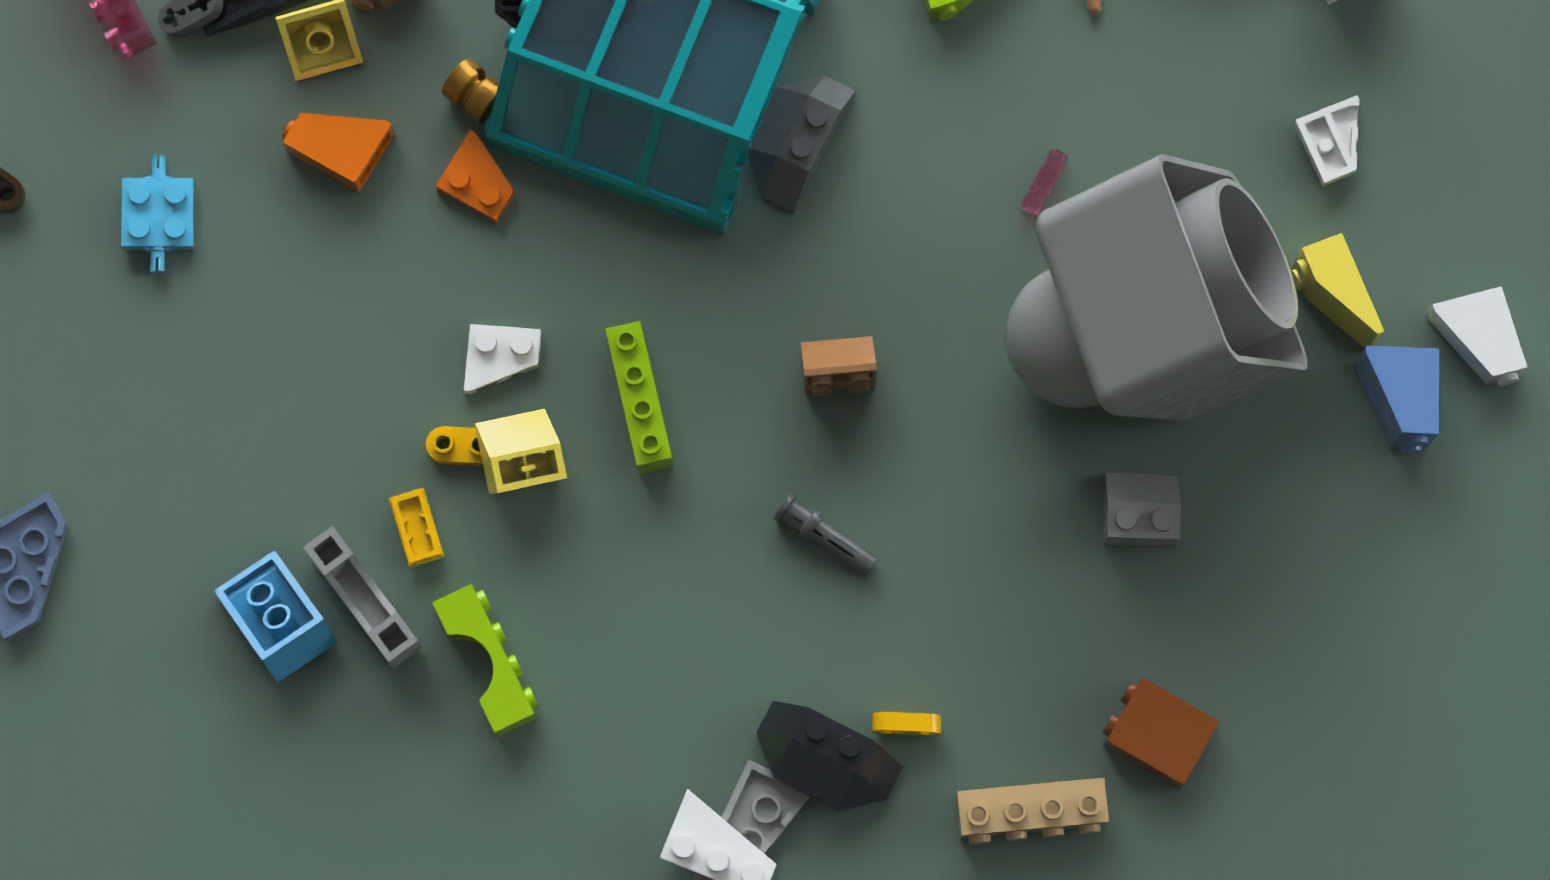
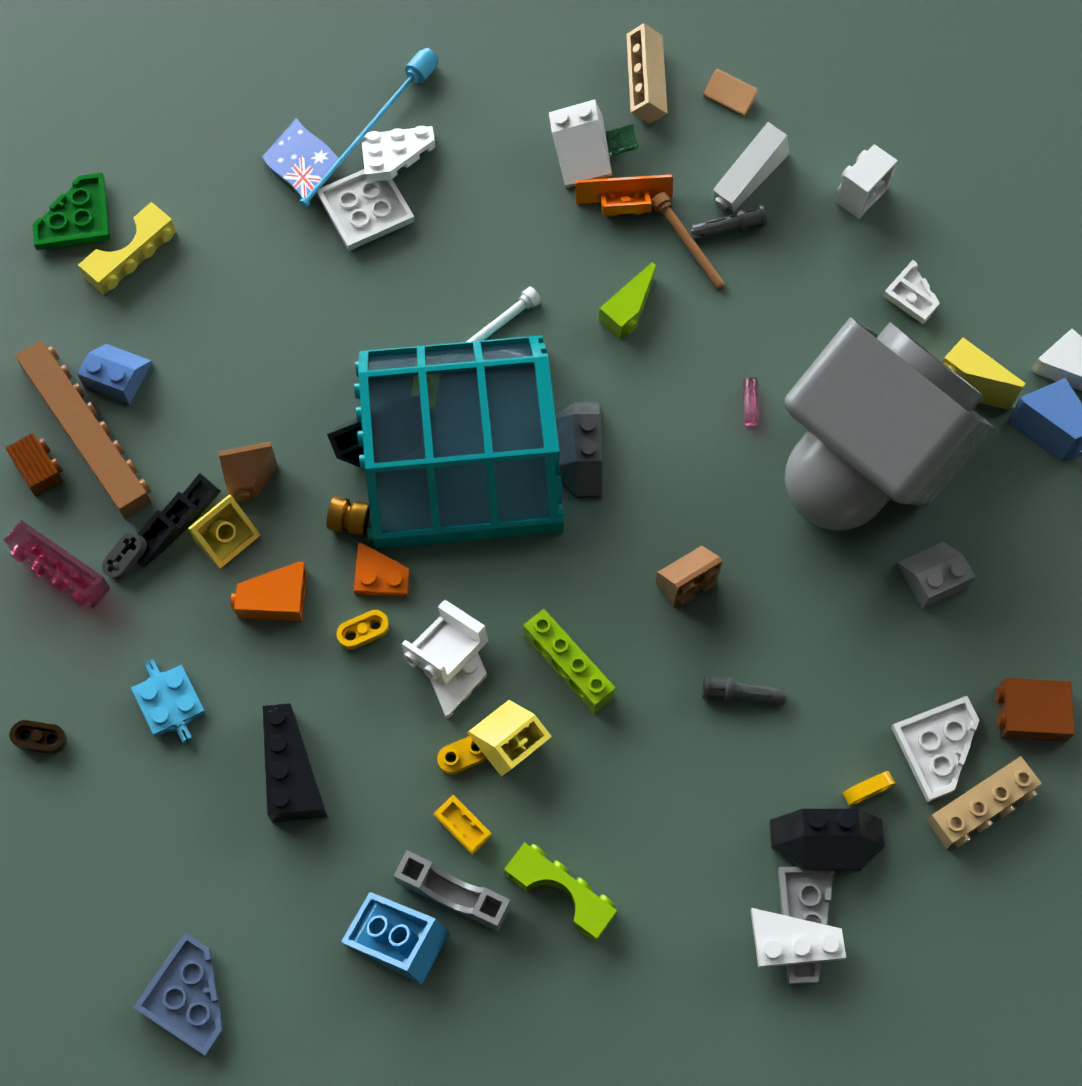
camera: 30 degrees left, 10 degrees down
(251, 366) = (289, 774): none -> black wedge
(422, 239) = (362, 629): none -> yellow plate
(505, 306) = (446, 644): none -> white panel
(1020, 714) = (938, 745): none -> white plate

